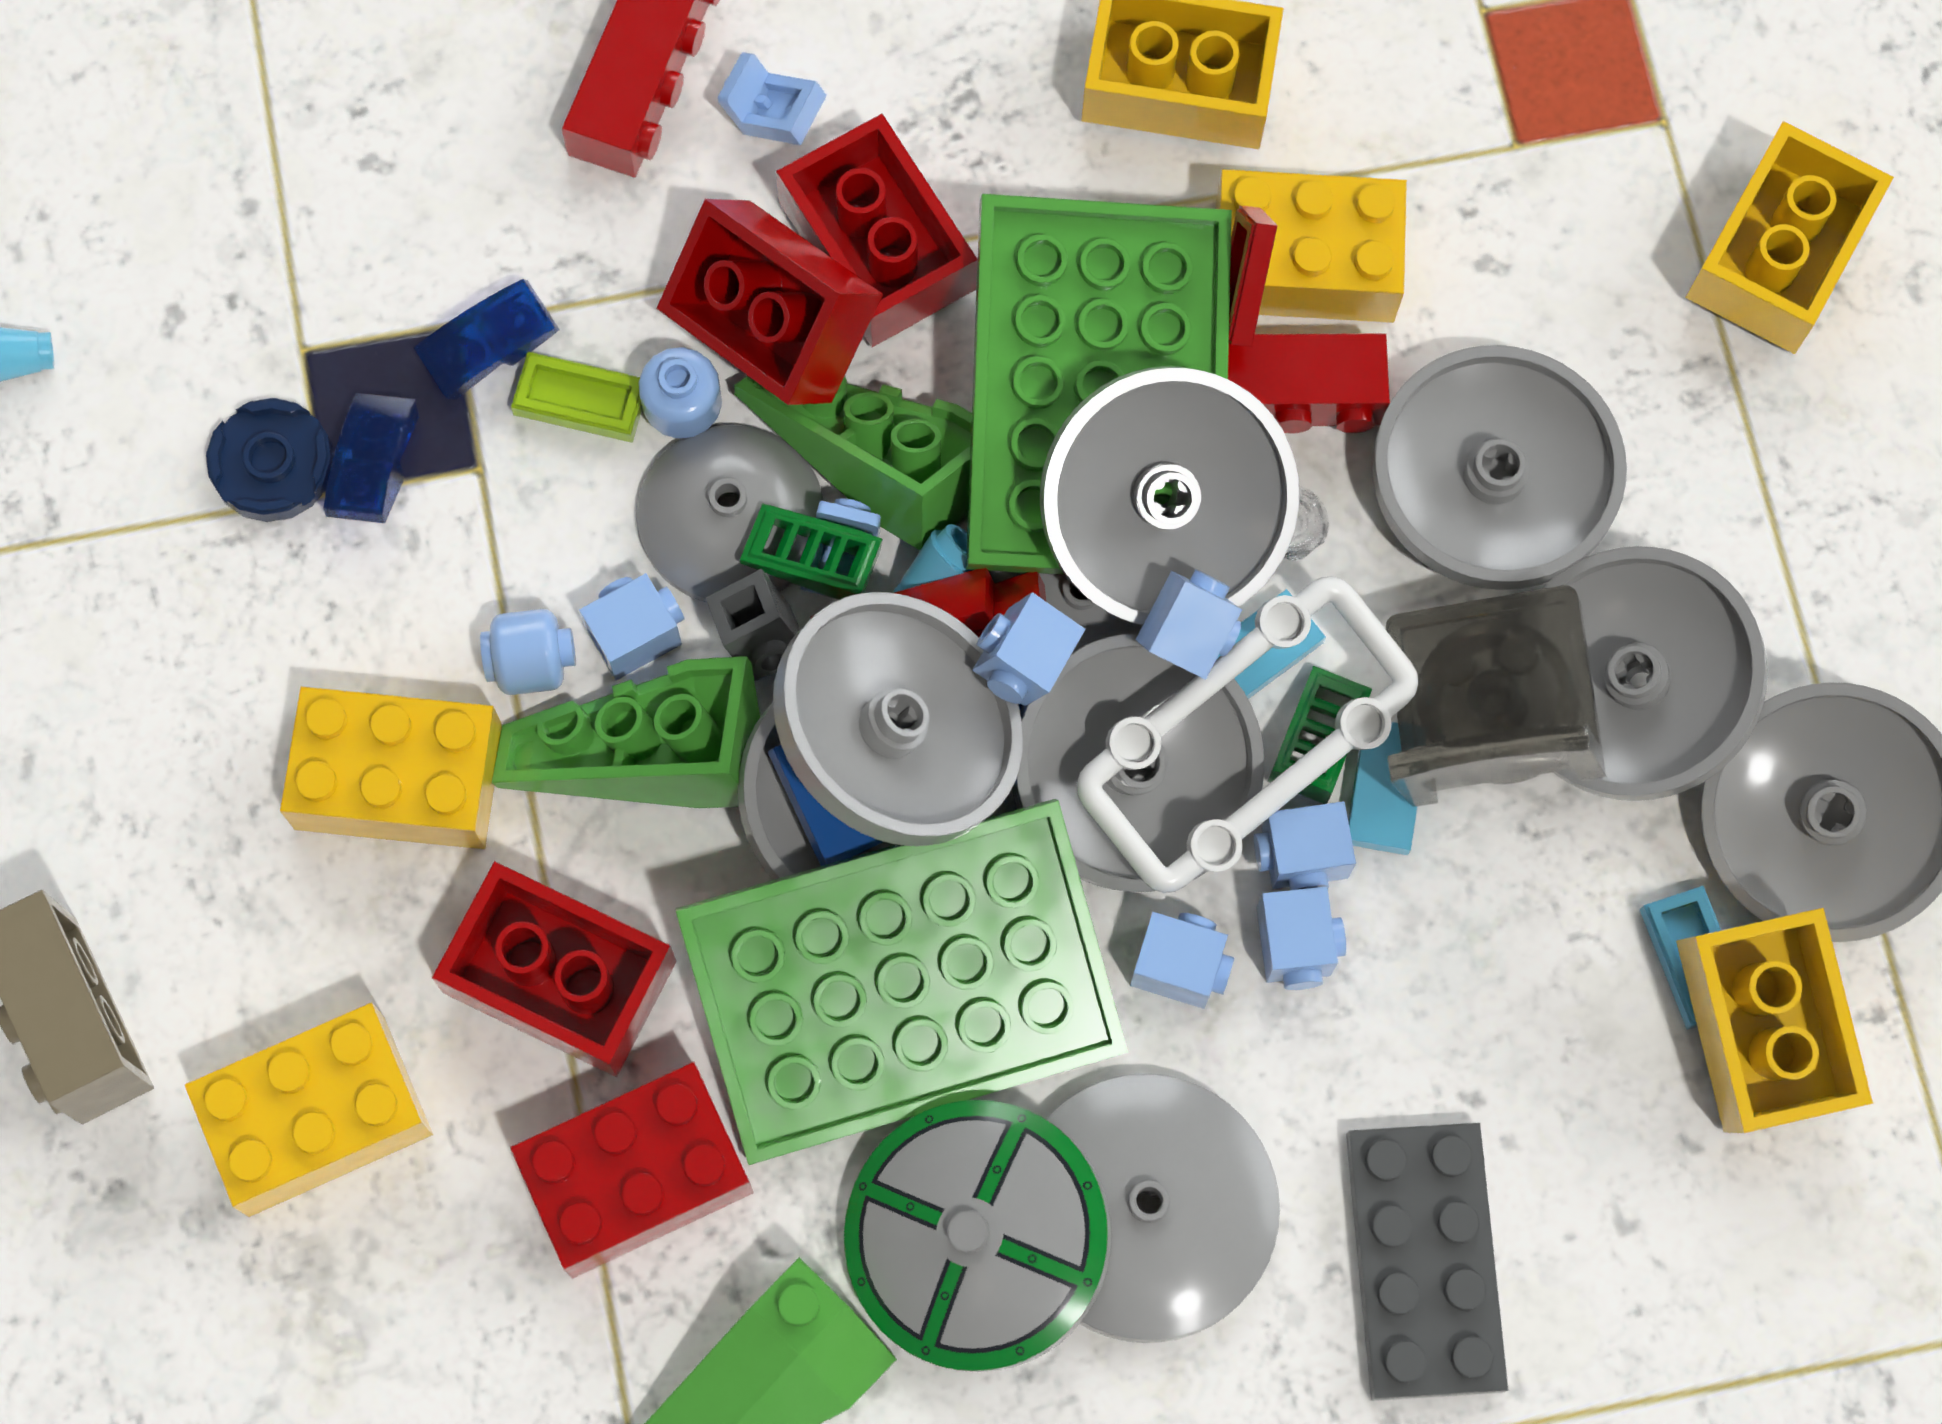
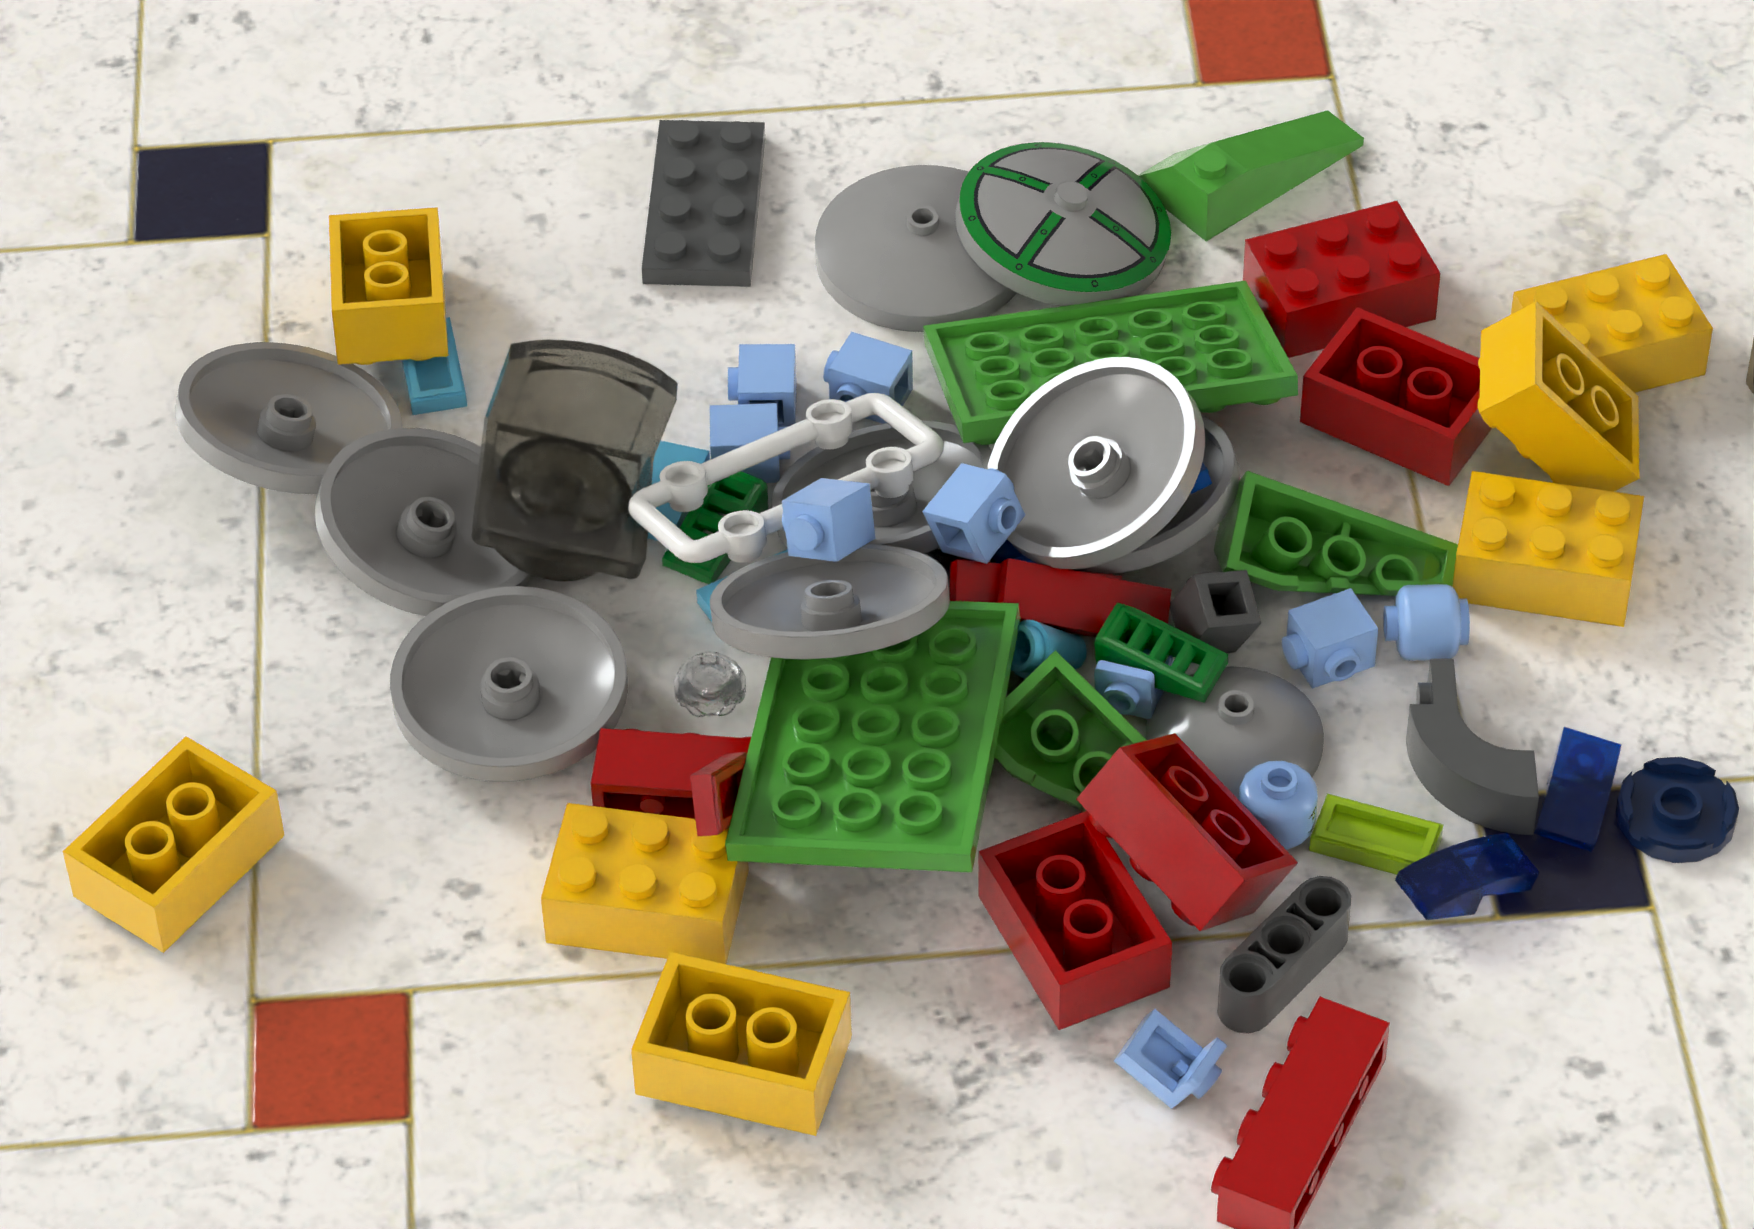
camera: 170 degrees left, 25 degrees down
(372, 917) = (1558, 402): none -> yellow brick
(478, 456) = (1462, 770): none -> dark grey arch
(668, 202) = (1284, 954): none -> dark grey beam

